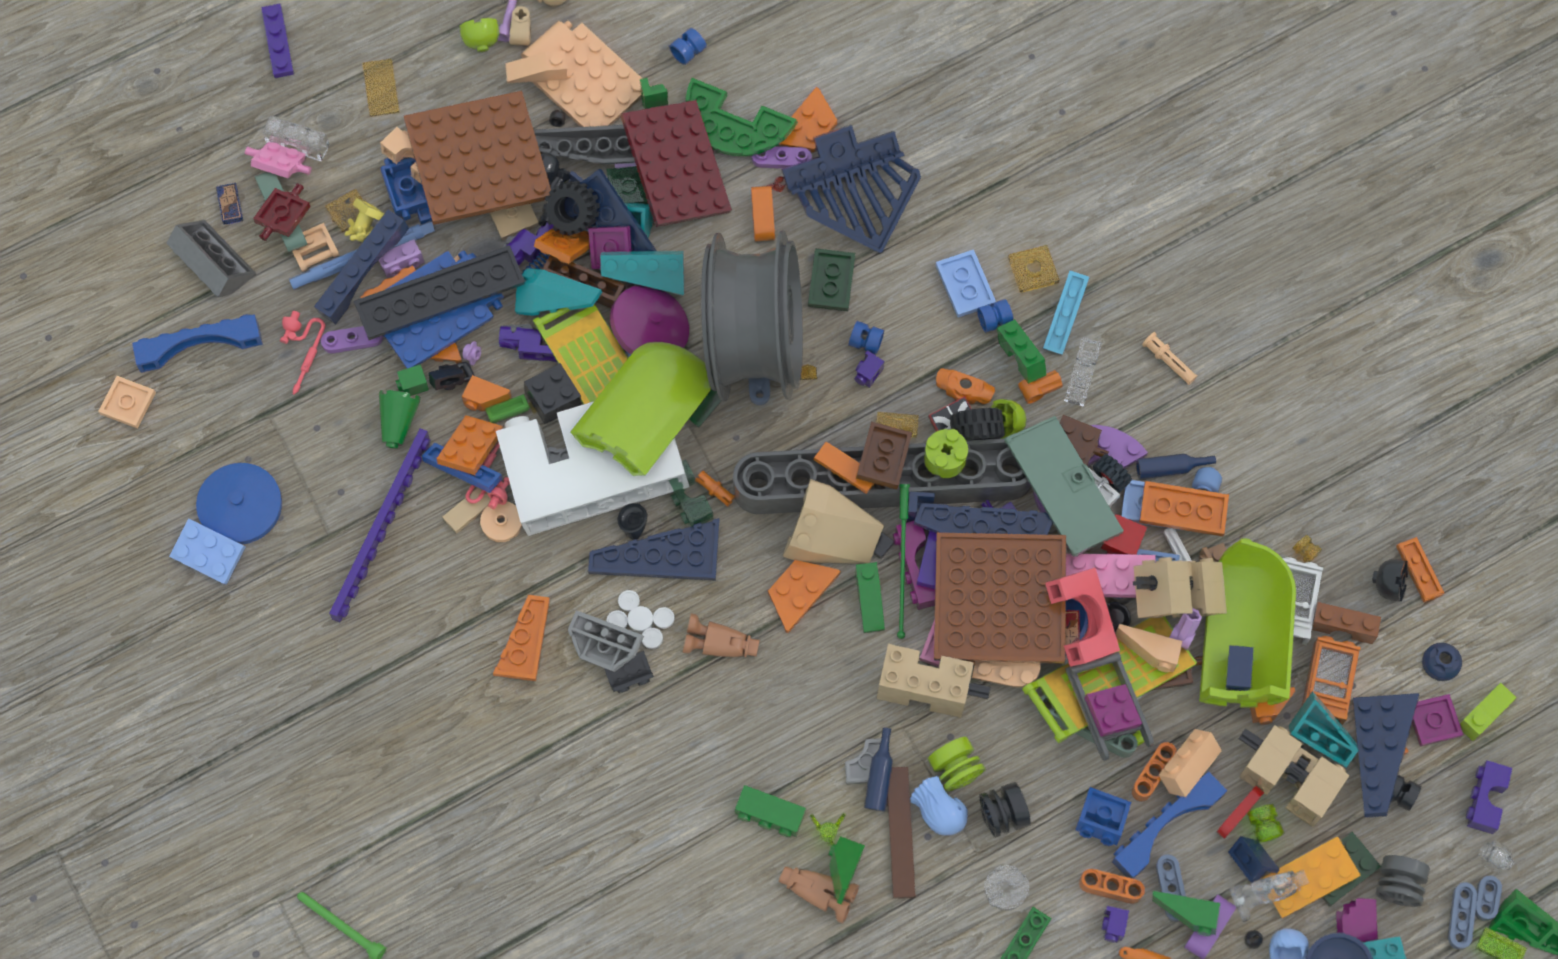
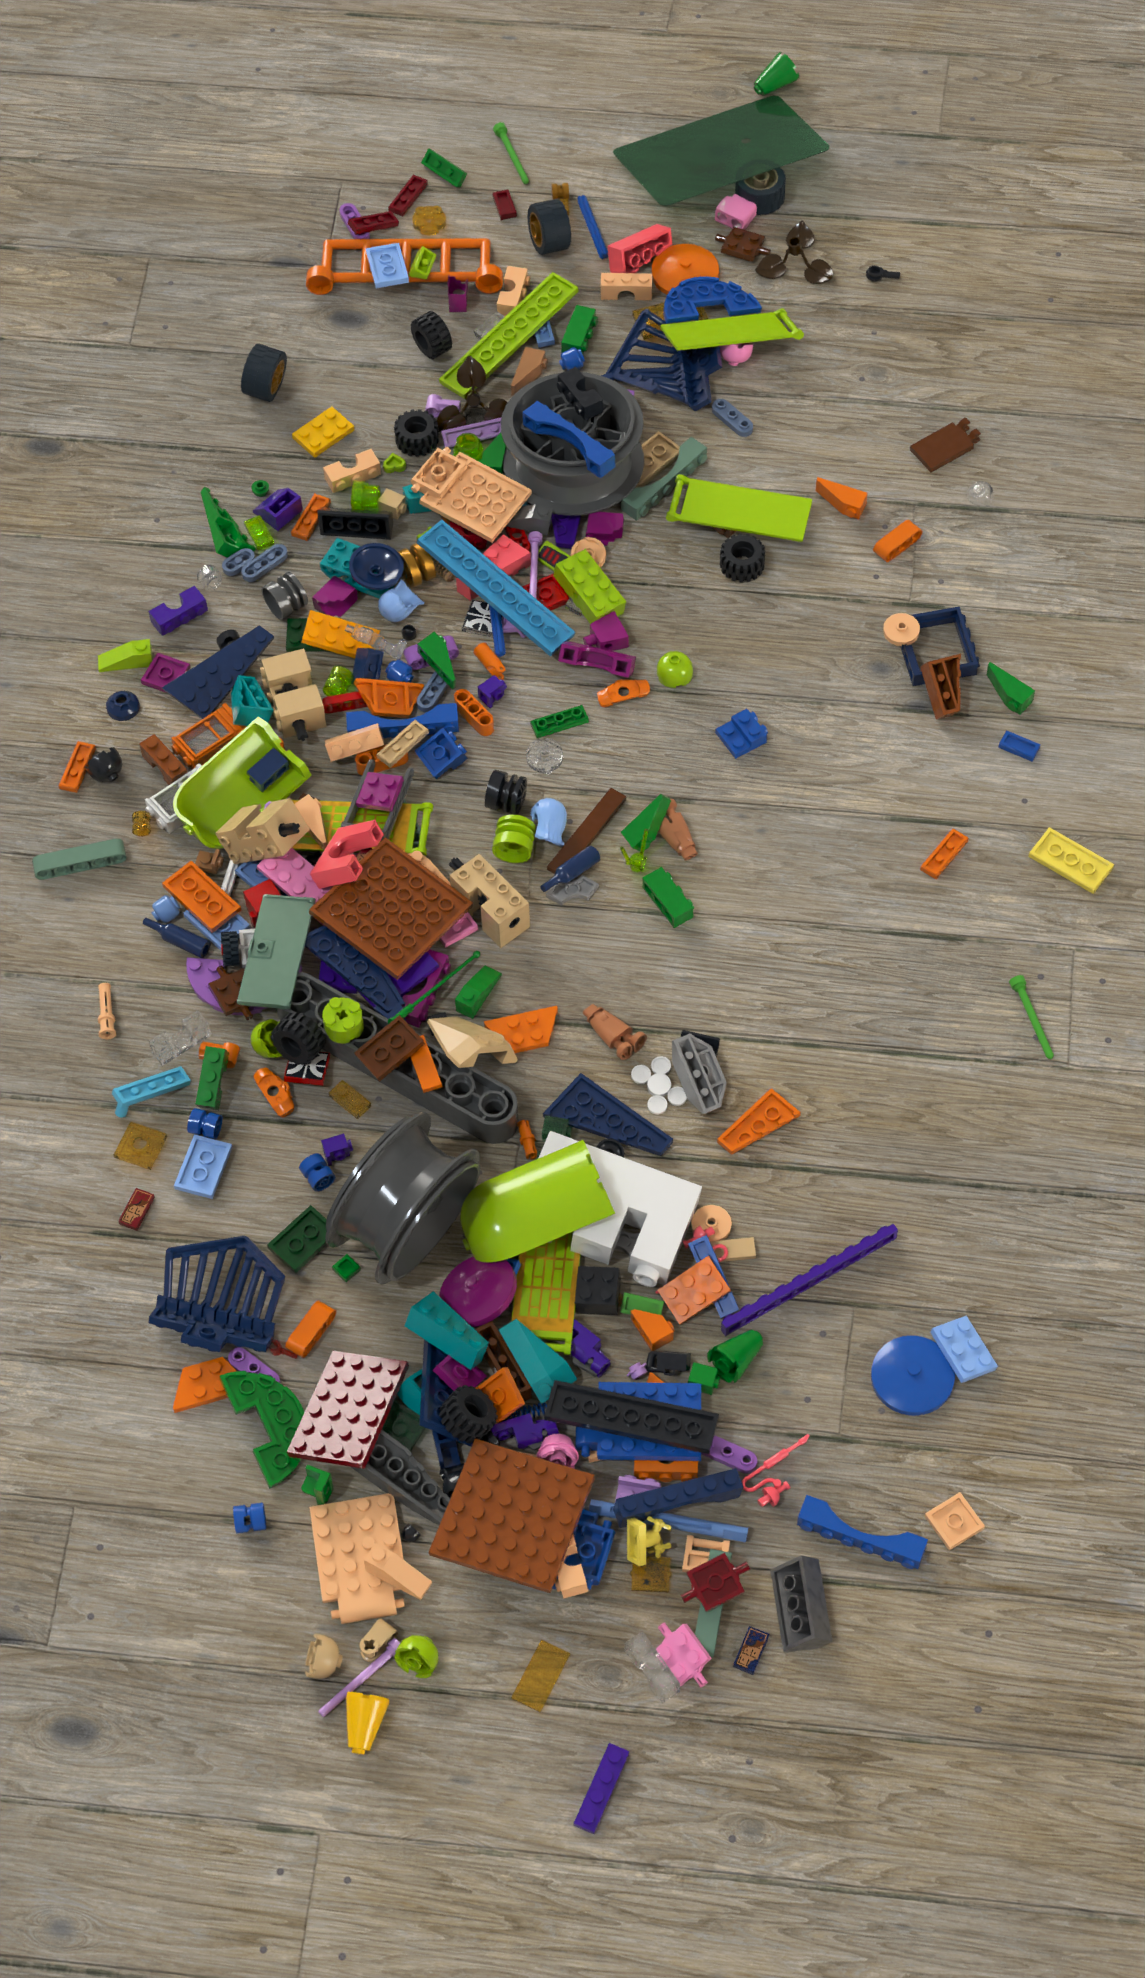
camera: 140 degrees left, 10 degrees down
(485, 239) = (558, 1449): none -> bright pink cone
(988, 216) = (136, 1209): none -> tile
(1143, 791) = (402, 743): none -> tan tile
(1203, 841) = (389, 697): none -> orange wing
(1218, 878) = (399, 671): none -> blue head
(1327, 478) = (79, 859): none -> sand green beam

